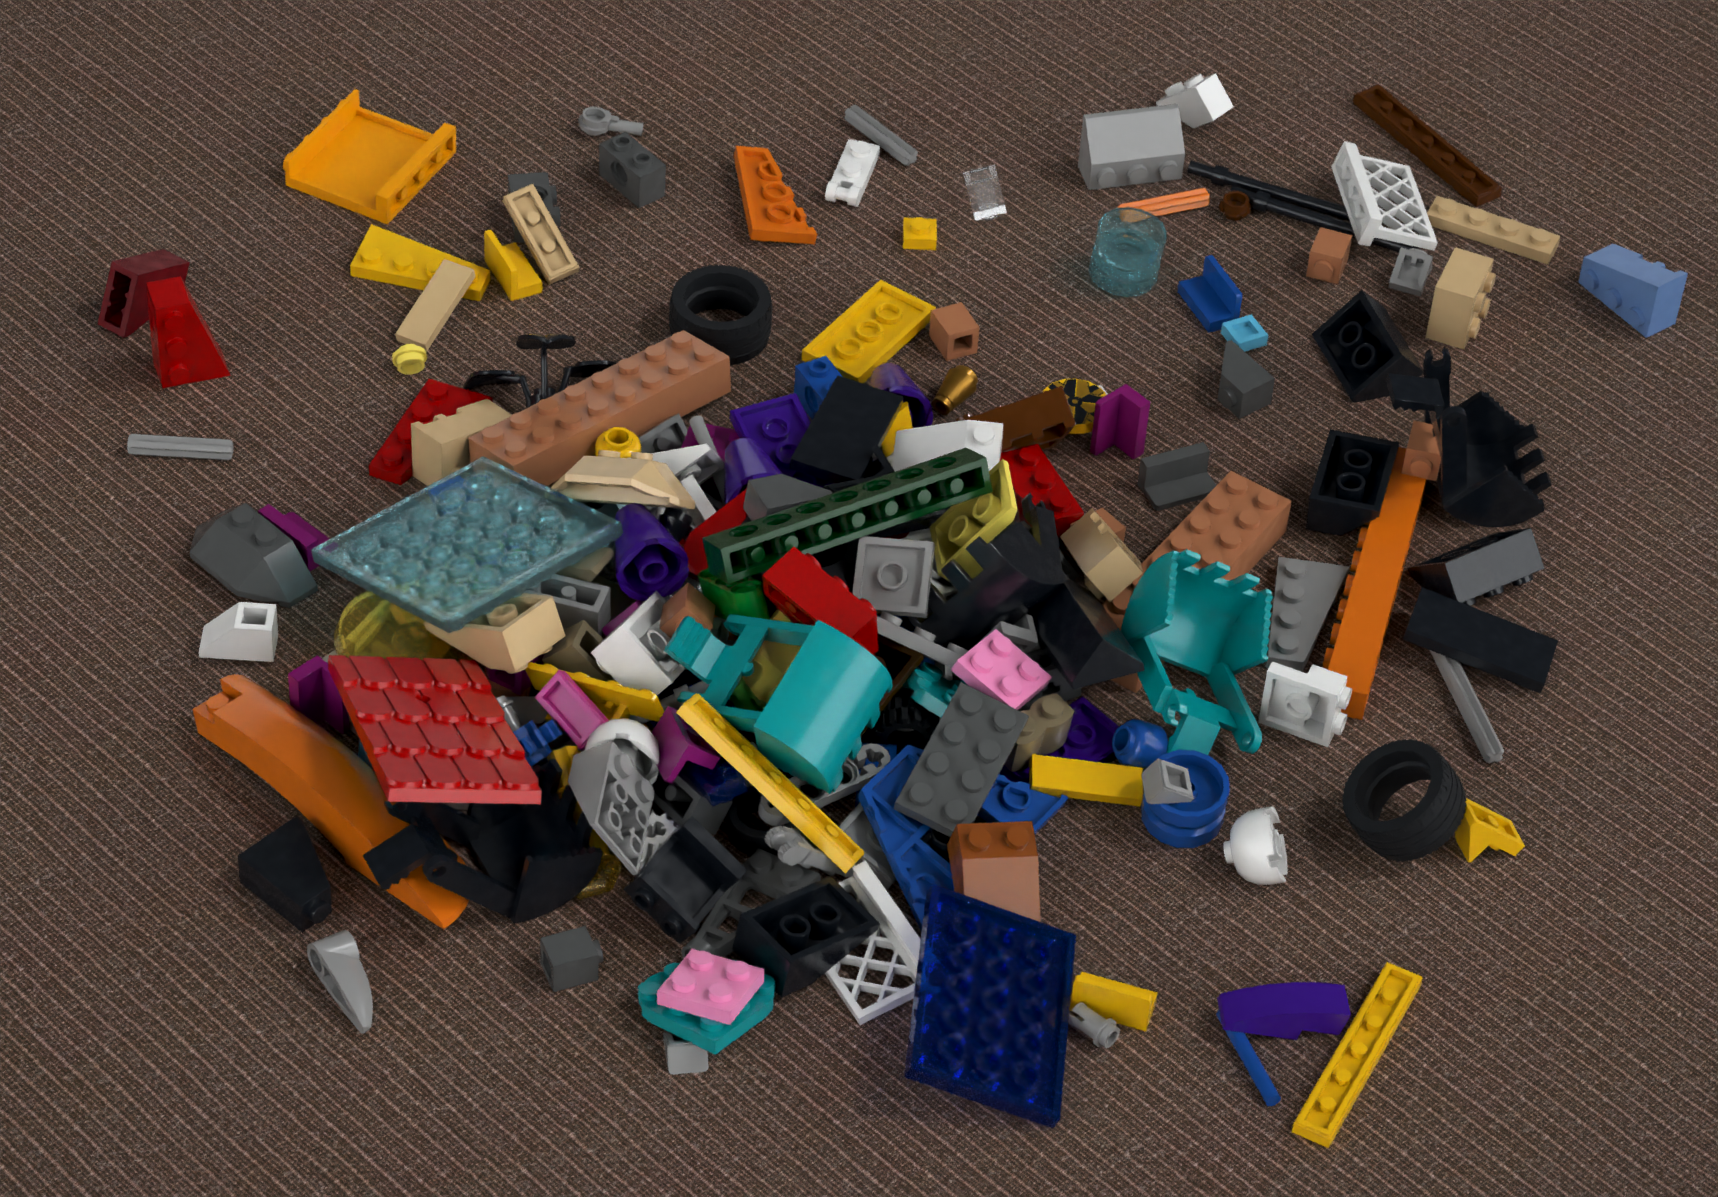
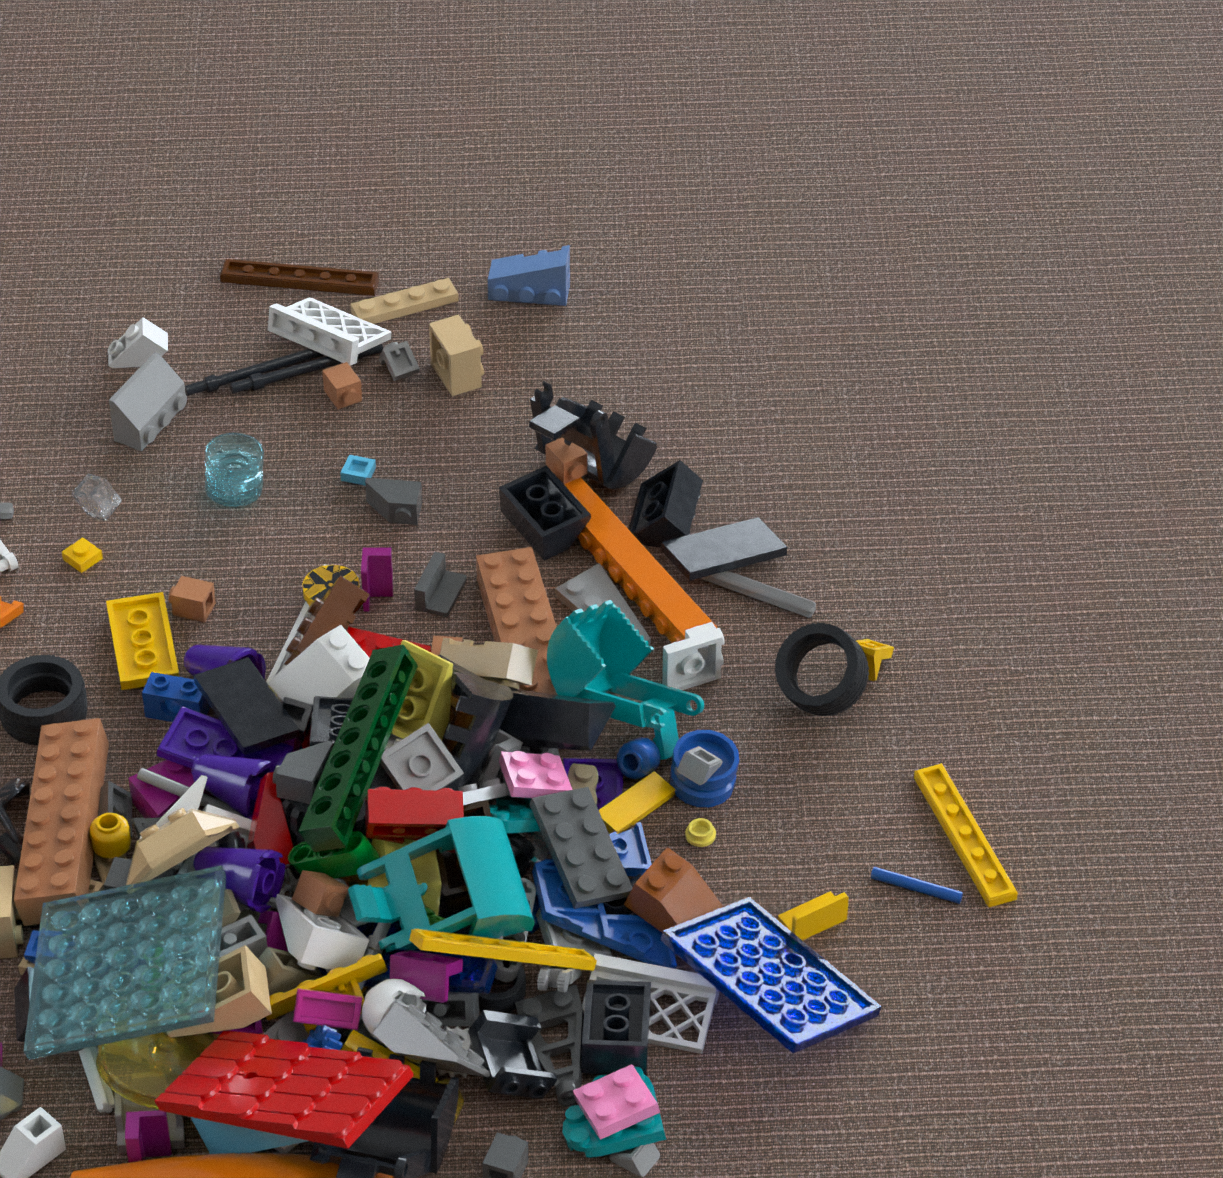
camera: 45 degrees left, 0 degrees up
(955, 388) = (240, 630): pearl gold cone -> none
(1102, 1031) = (826, 938): light grey pin -> none
(1114, 851) = (700, 832): none -> light yellow plate
(1172, 202) = (202, 427): orange axle -> none
(1212, 296) = (310, 460): blue panel -> none
(1235, 205) = (245, 395): reddish brown plate -> none
(1257, 847) = (776, 762): white cylinder -> none
(1285, 1009) = (907, 840): dark purple slope -> none
(1364, 348) = (439, 427): black slope -> none

